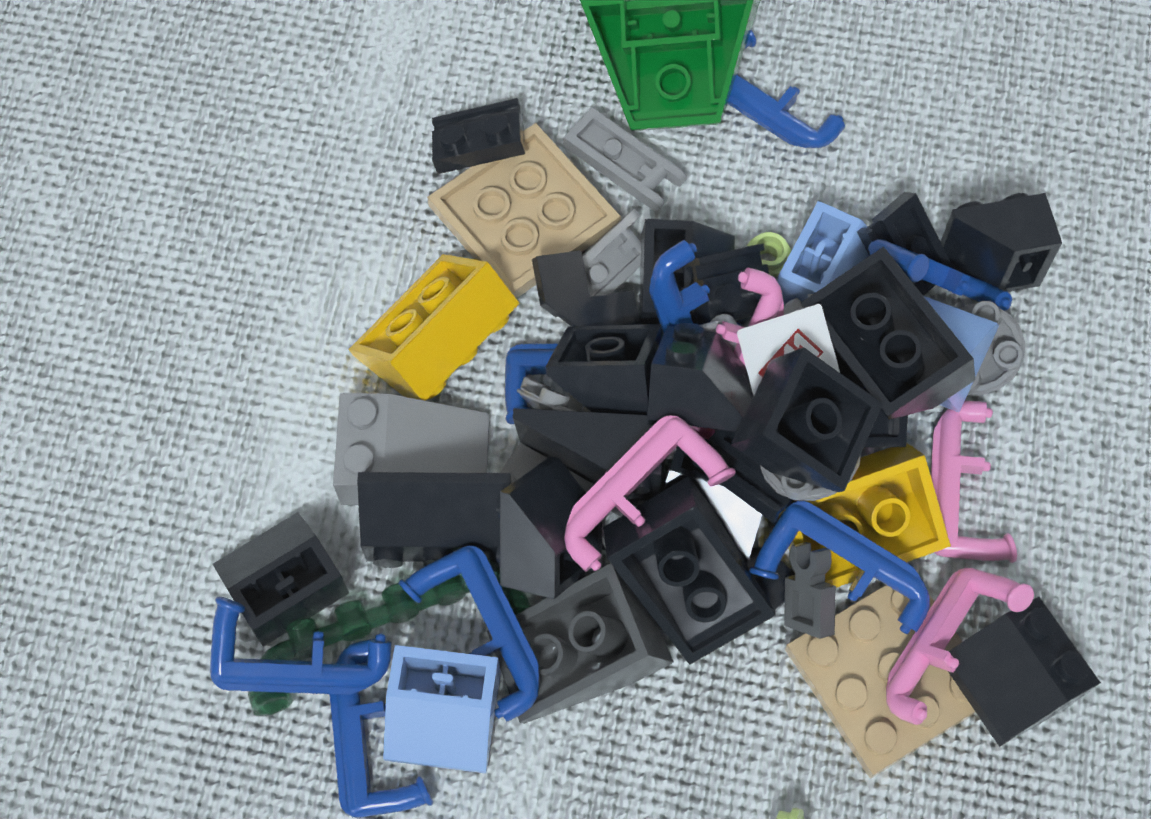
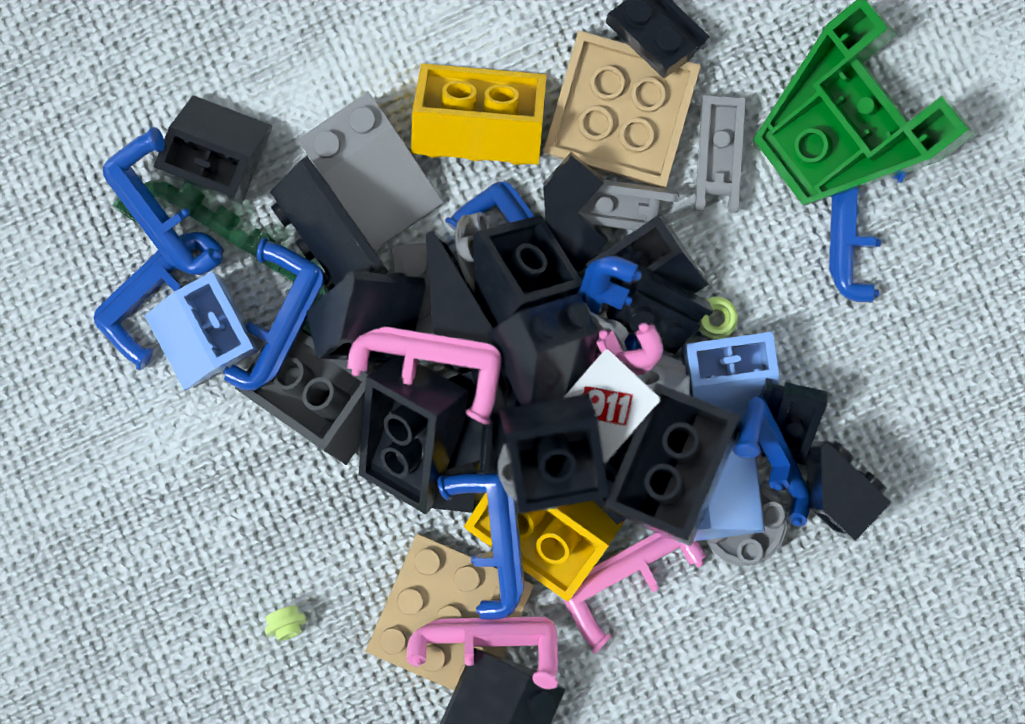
camera: 55 degrees right, 20 degrees up
(807, 595) = (453, 528): dark grey plate -> none

